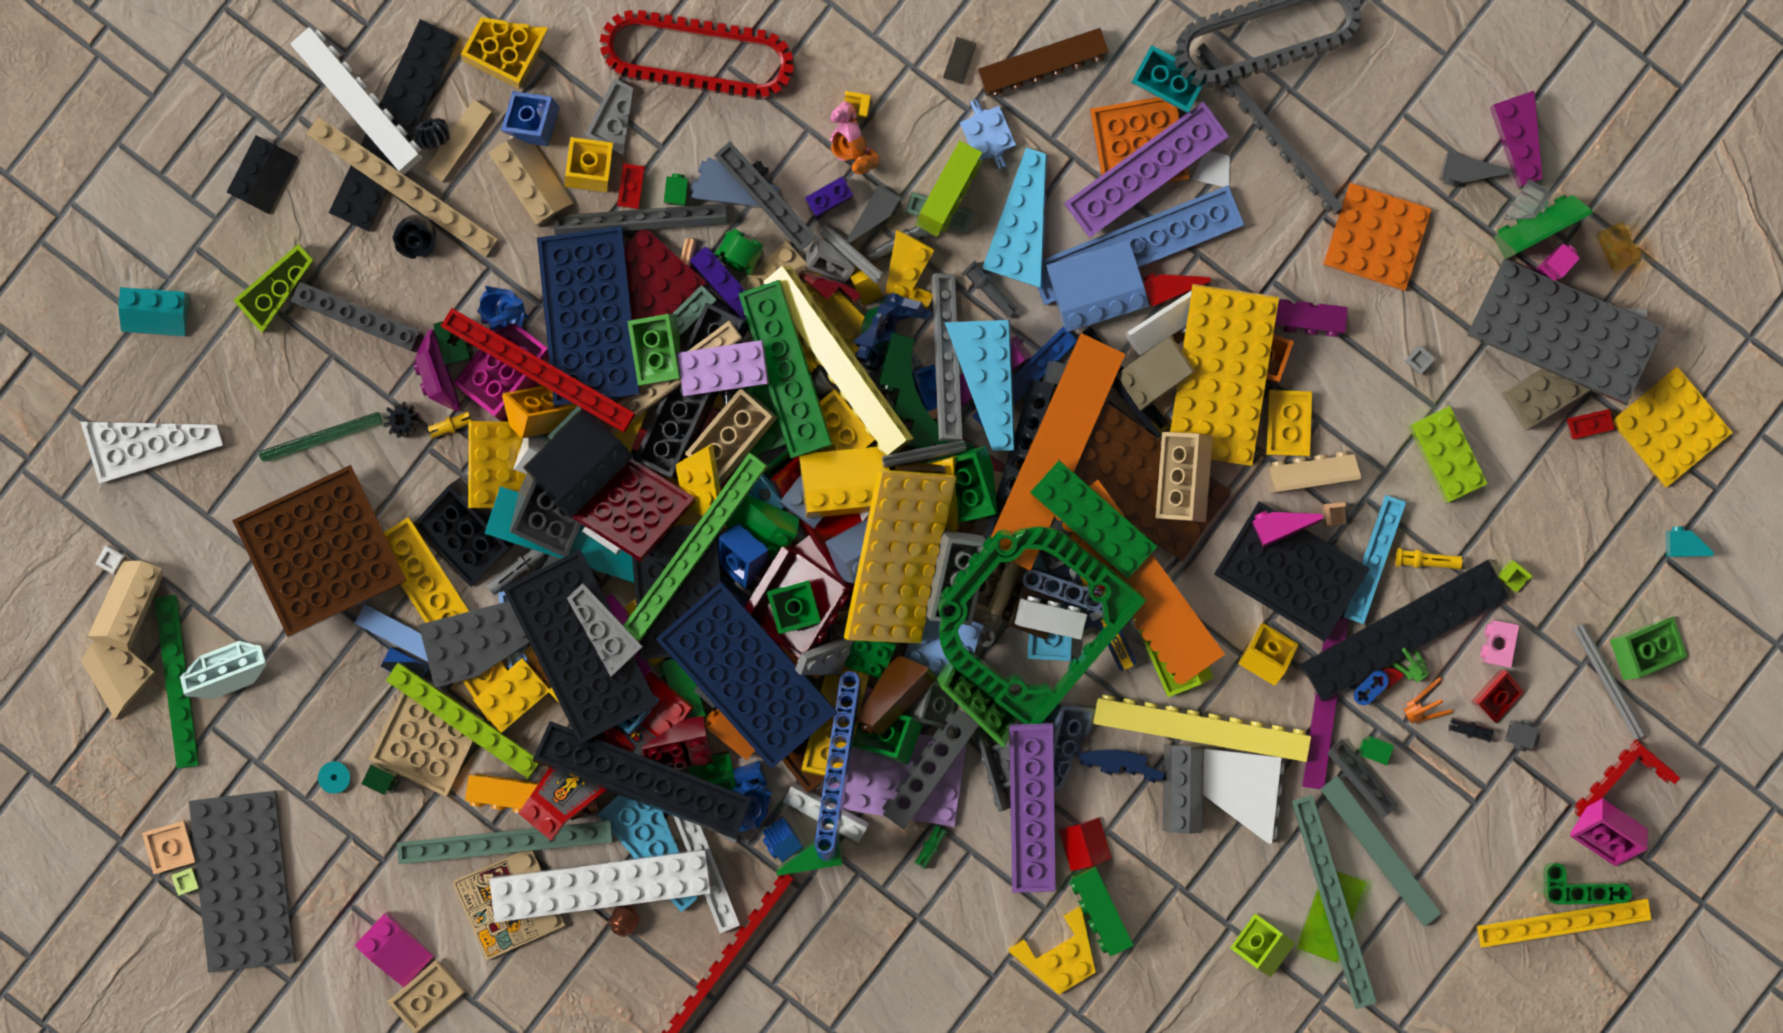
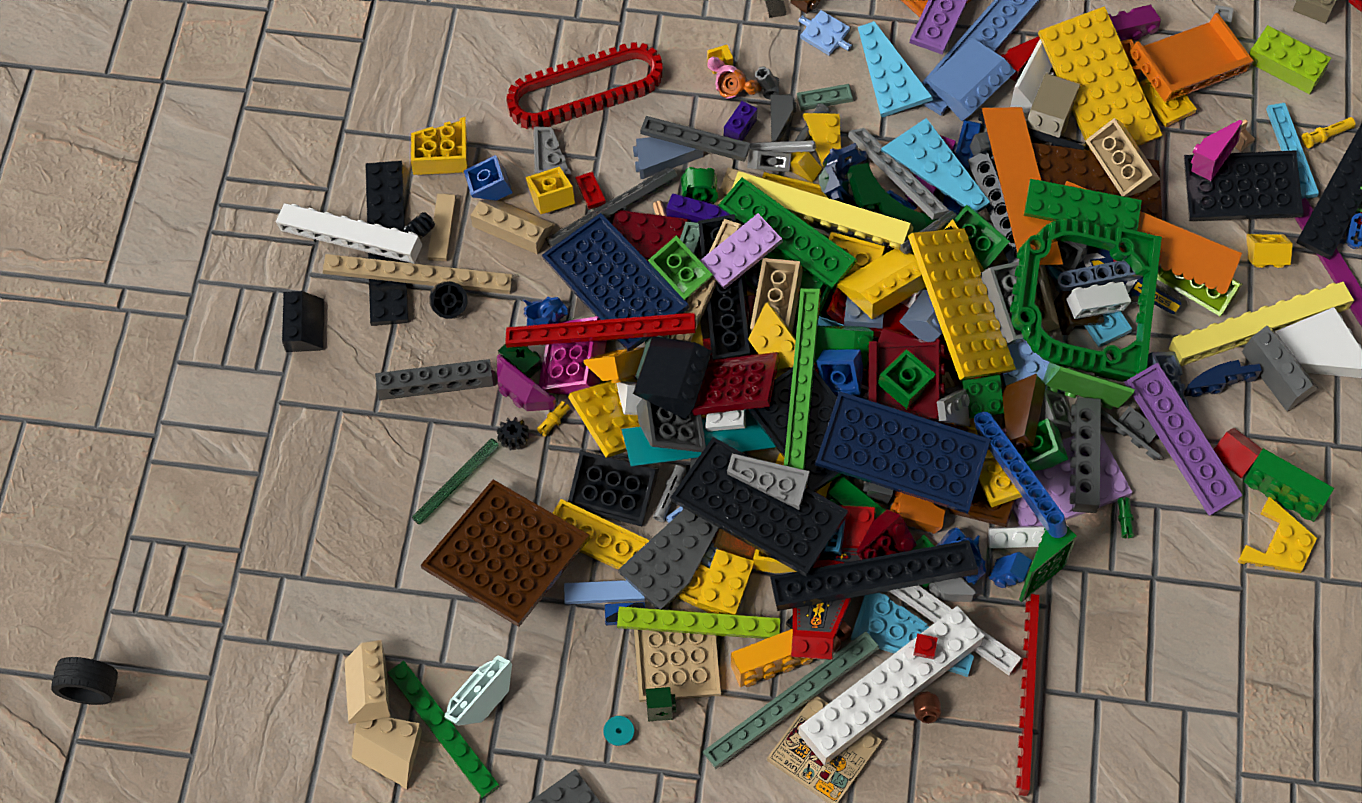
camera: 30 degrees left, 25 degrees down
(110, 560) = (333, 664): white tile -> none
(135, 447) = (310, 565): white wing -> none
(153, 311) = (268, 459): teal slope -> none
(271, 290) = (356, 392): lime wedge -> none
(647, 874) = (925, 646): none -> red plate
(676, 190) = (626, 175): green brick -> none
(829, 287) = (787, 166): dark red slope -> none
(885, 167) = (768, 82): none -> dark grey piece
(947, 192) = (824, 68): lime brick -> none
(982, 282) = (887, 121): dark grey pin -> none
(1313, 473) = (1208, 117): tan slope -> none
(1342, 397) = (1192, 59): none -> orange panel

